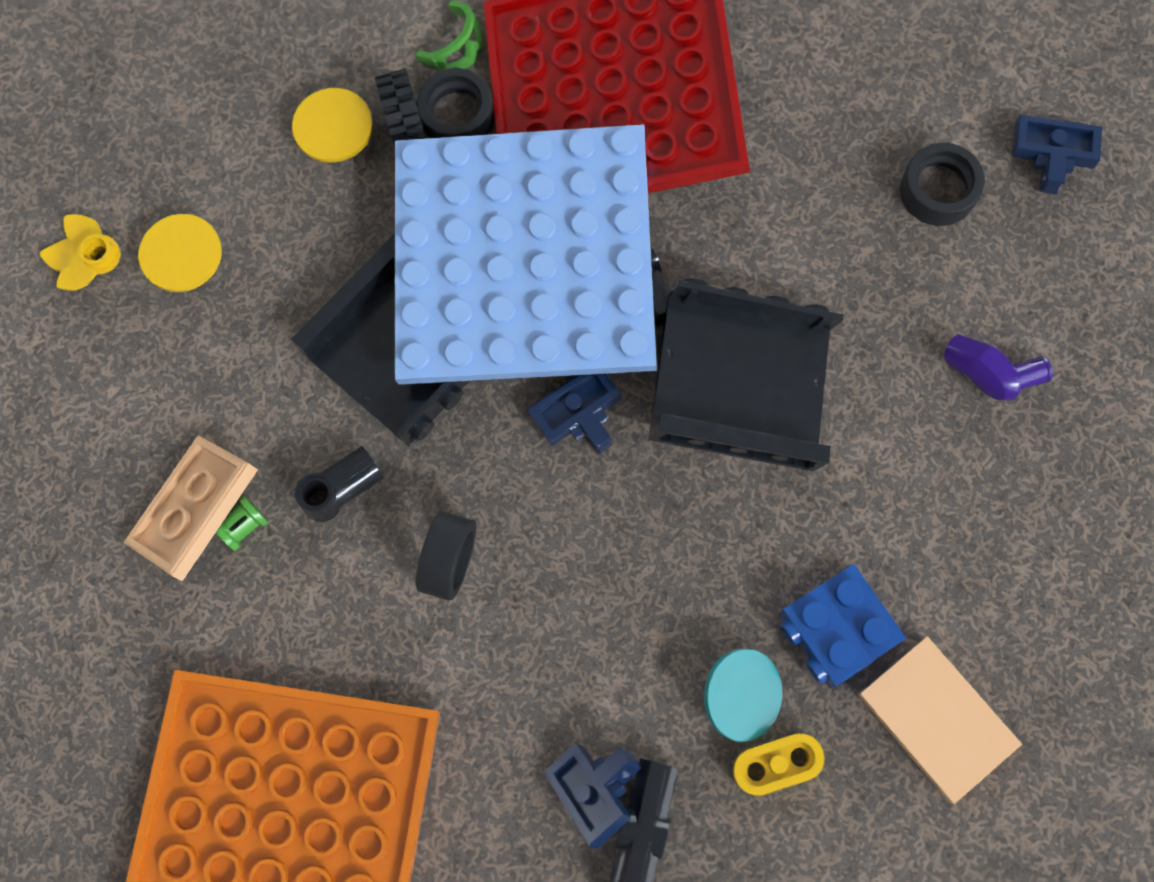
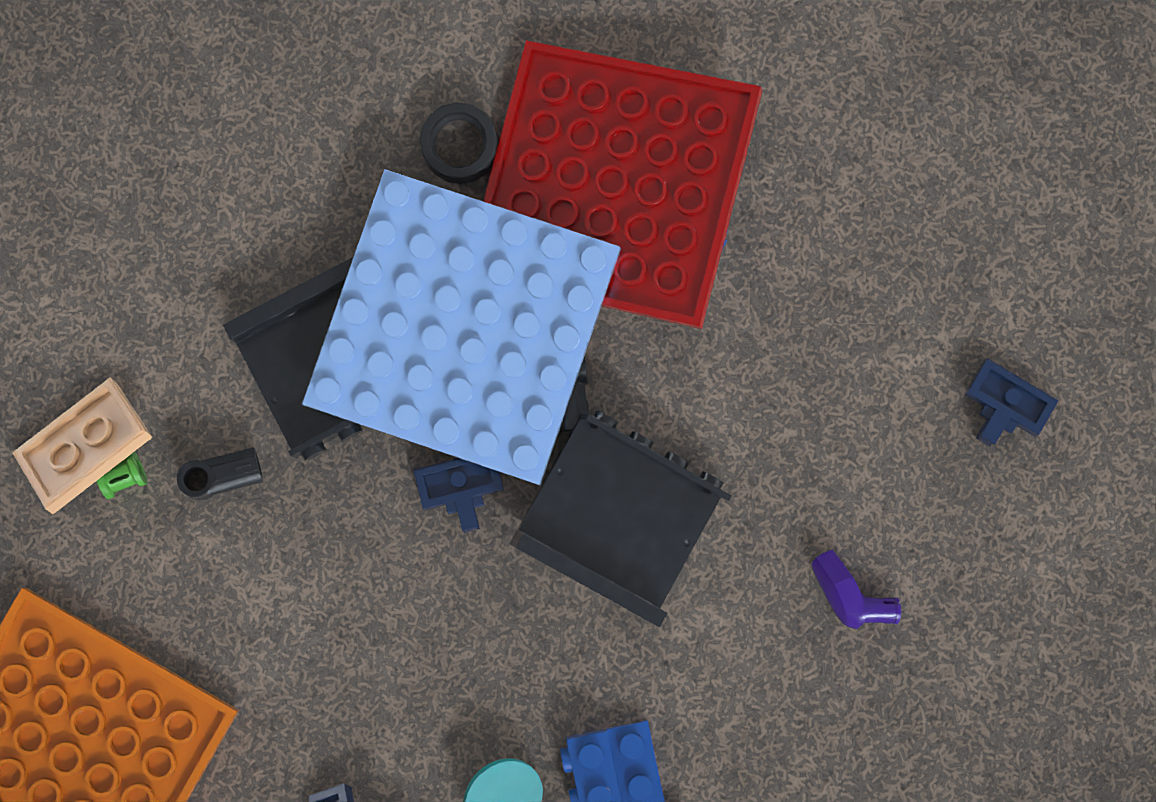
camera: 15 degrees right, 10 degrees up
(77, 254) = (53, 150): yellow plate -> none
(180, 253) = (149, 193): yellow piece -> none
(332, 125) = (335, 116): yellow piece -> none
(399, 106) = (403, 129): black tyre -> none
(438, 58) = (498, 80): bright green helmet -> none
(445, 555) = (291, 580): black tyre -> none
(948, 156) = (914, 389): black tyre -> none

